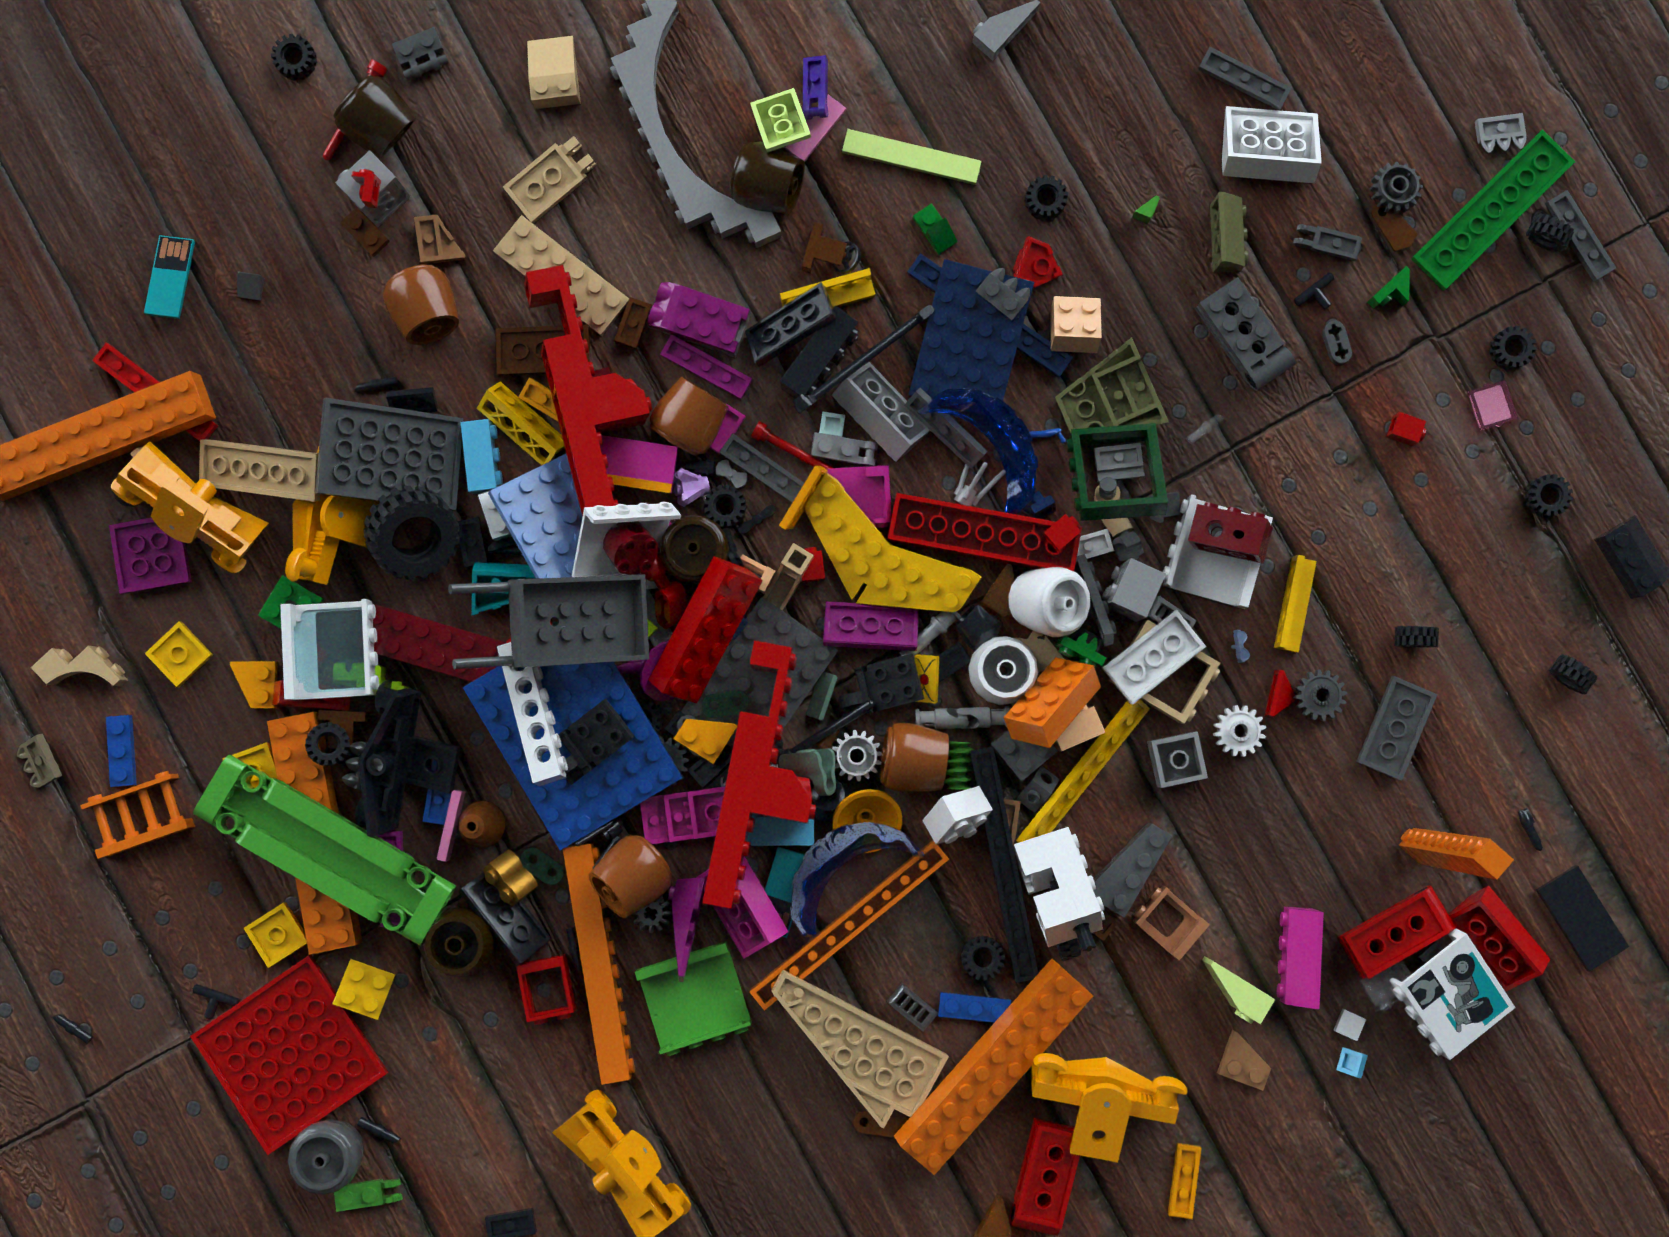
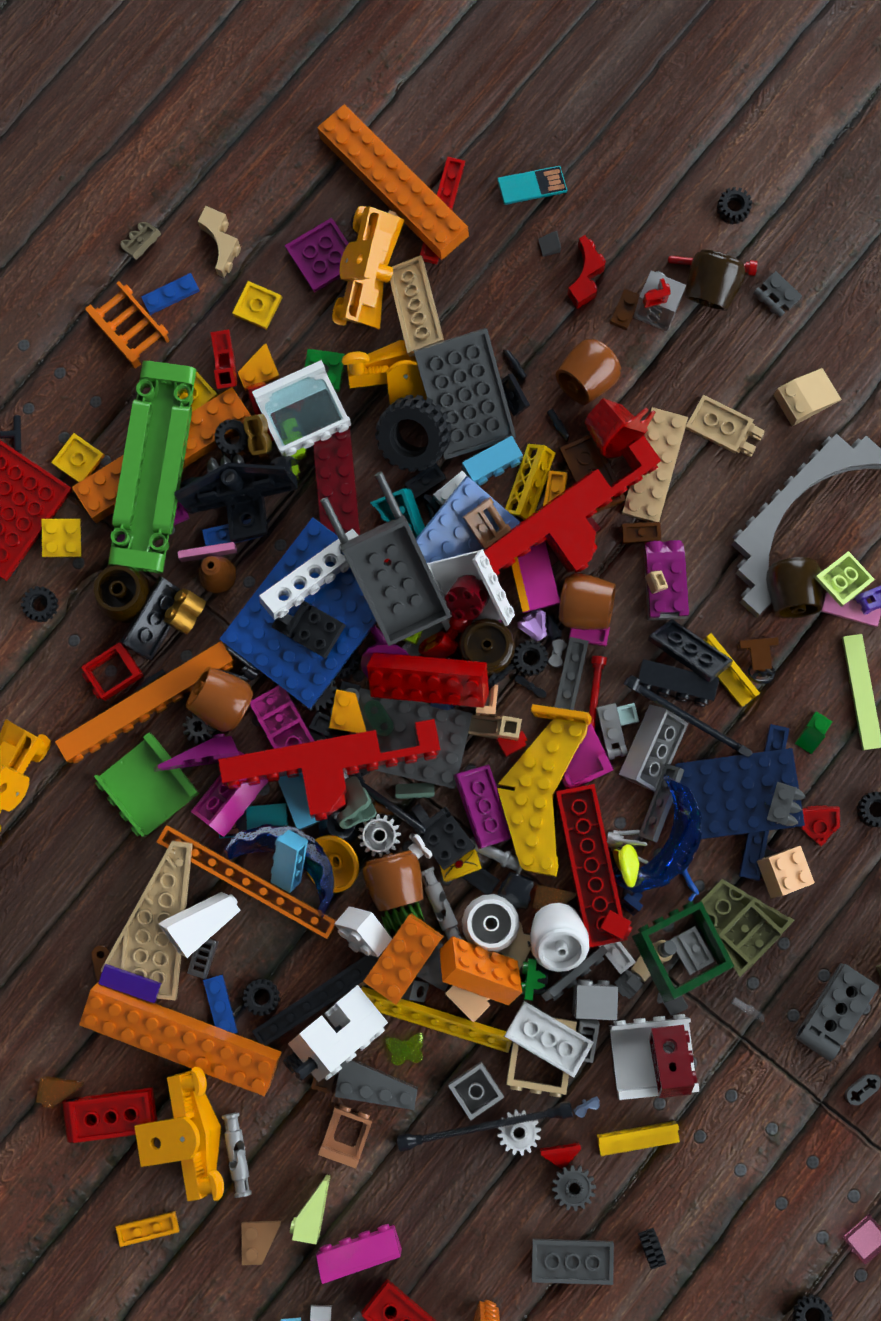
camera: 70 degrees right, 5 degrees down
(230, 718) = (224, 357): none -> red arch
(296, 245) = (594, 264): none -> red arch
(345, 713) = (256, 428): none -> pearl gold brick
(419, 1050) = (29, 599): none -> black tyre
(435, 241) = (640, 362): medium nougat wing -> none
(468, 364) = (558, 424): none -> black piece
(500, 301) = (615, 427): none -> red piece
(542, 866) = (204, 632): clear green plate -> none
(555, 498) = (481, 525): none -> medium nougat plate
(697, 329) = (656, 581): none -> tan slope
(706, 367) = (631, 601): magenta plate -> none
(845, 868) = (288, 860): none -> medium azure brick
(874, 995) = (198, 923): none -> white slope
(887, 716) = (418, 847): none -> white animal
(910, 1100) = (129, 983): none -> dark purple tile
(998, 492) = (627, 863): none -> neon yellow piece
(1006, 781) = (403, 958): none -> orange brick
(1103, 819) = (406, 1049): none -> clear neon green animal
(1147, 1052) = (237, 1158): none -> light grey piece
(1202, 856) = (408, 1141): none -> black hose
(1406, 429) = (816, 1174): red brick -> none

